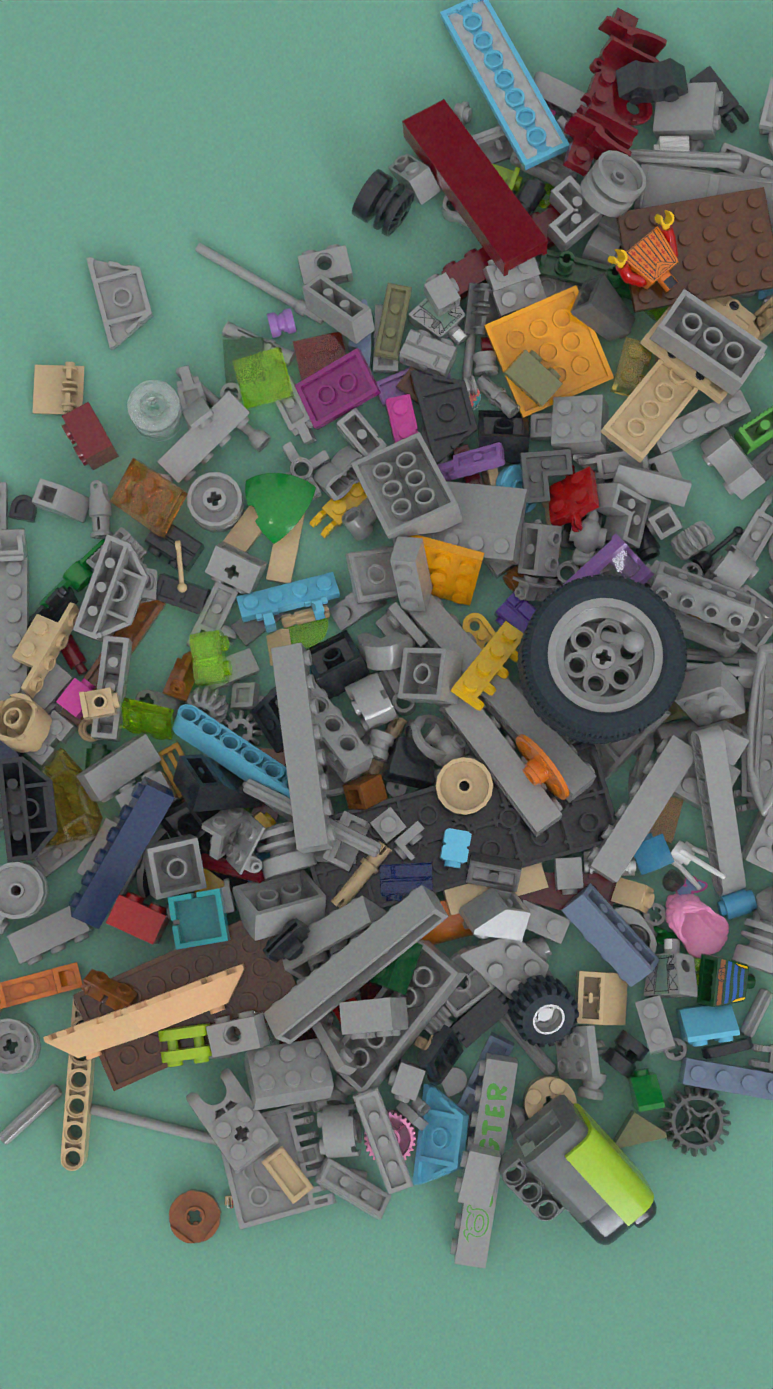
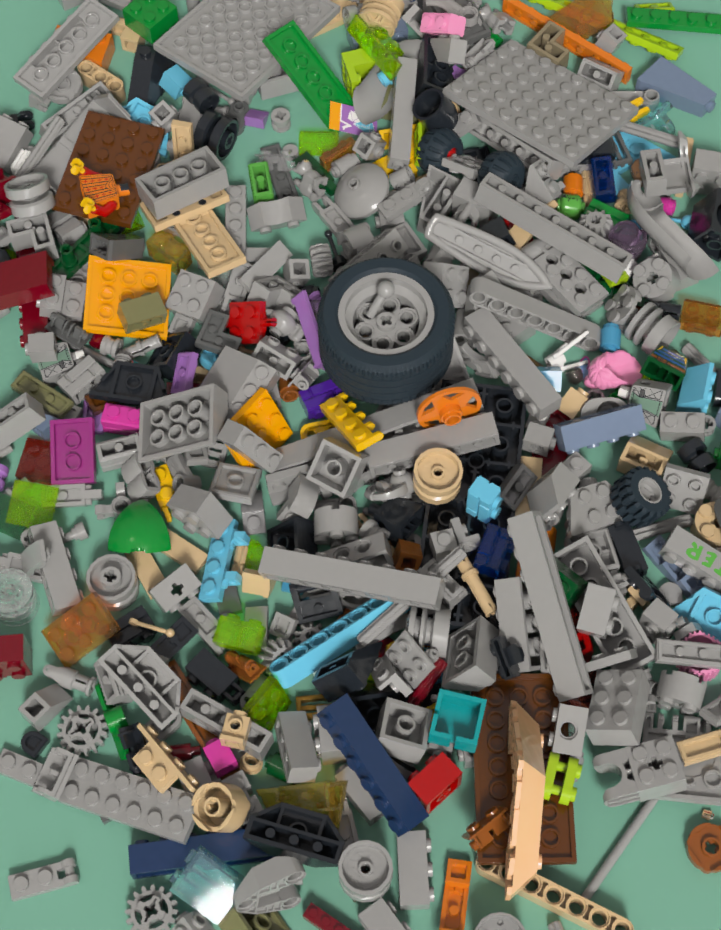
camera: 65 degrees left, 20 degrees down
(58, 541) = (74, 736): none -> light grey gear
(160, 652) = (214, 678): none -> black brick
(323, 553) = (199, 511): none -> light grey brick

